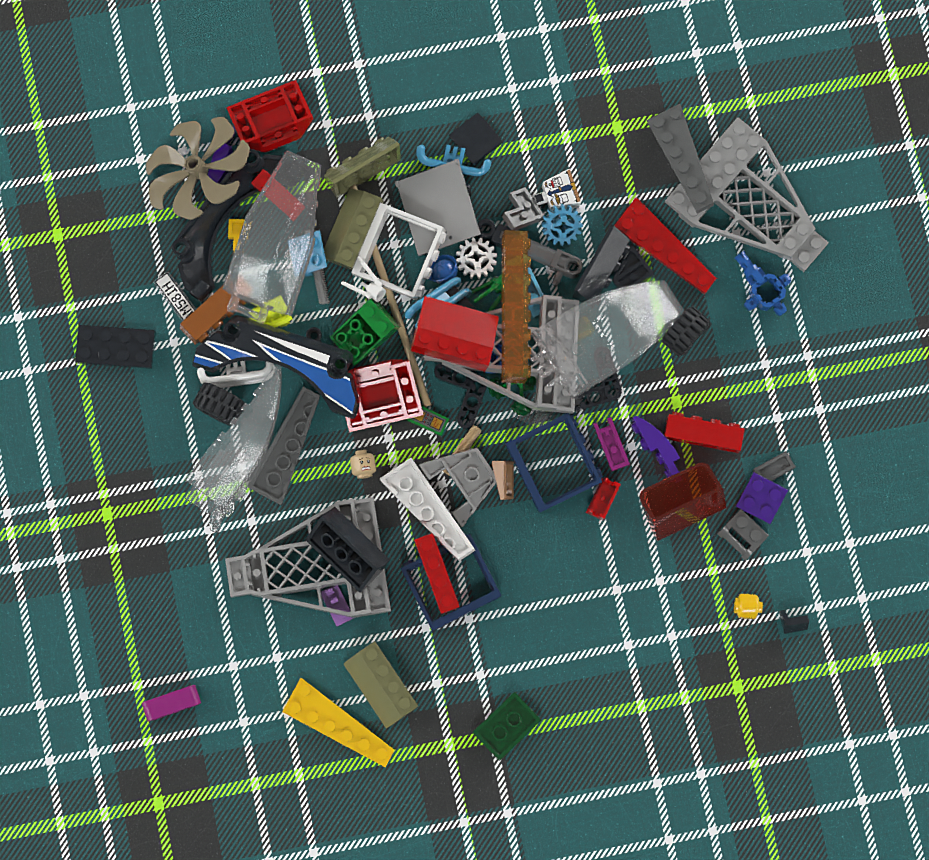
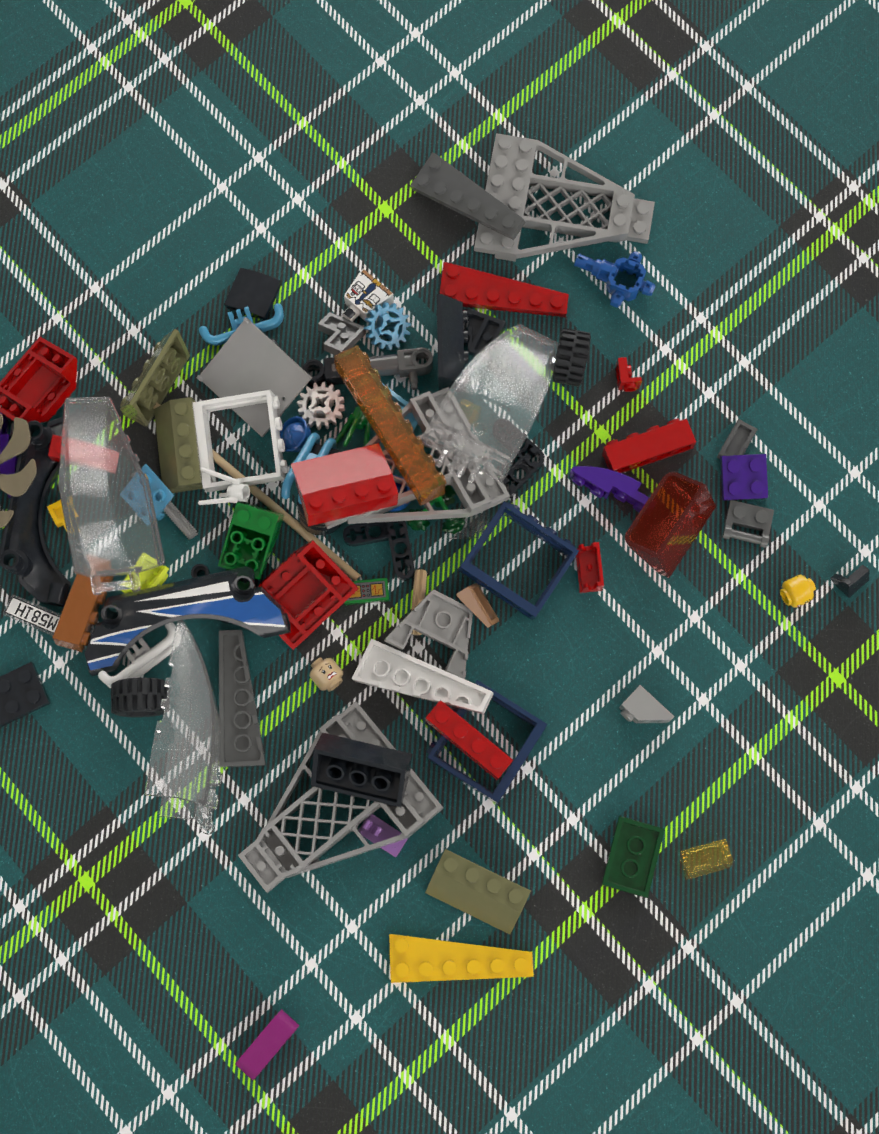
camera: 25 degrees left, 5 degrees down
(558, 758) = (706, 859): none -> clear yellow hinge
(579, 625) = (644, 708): none -> light grey slope
(611, 445) = (565, 511): magenta hinge -> none
(720, 365) = (624, 375): none -> red bracket

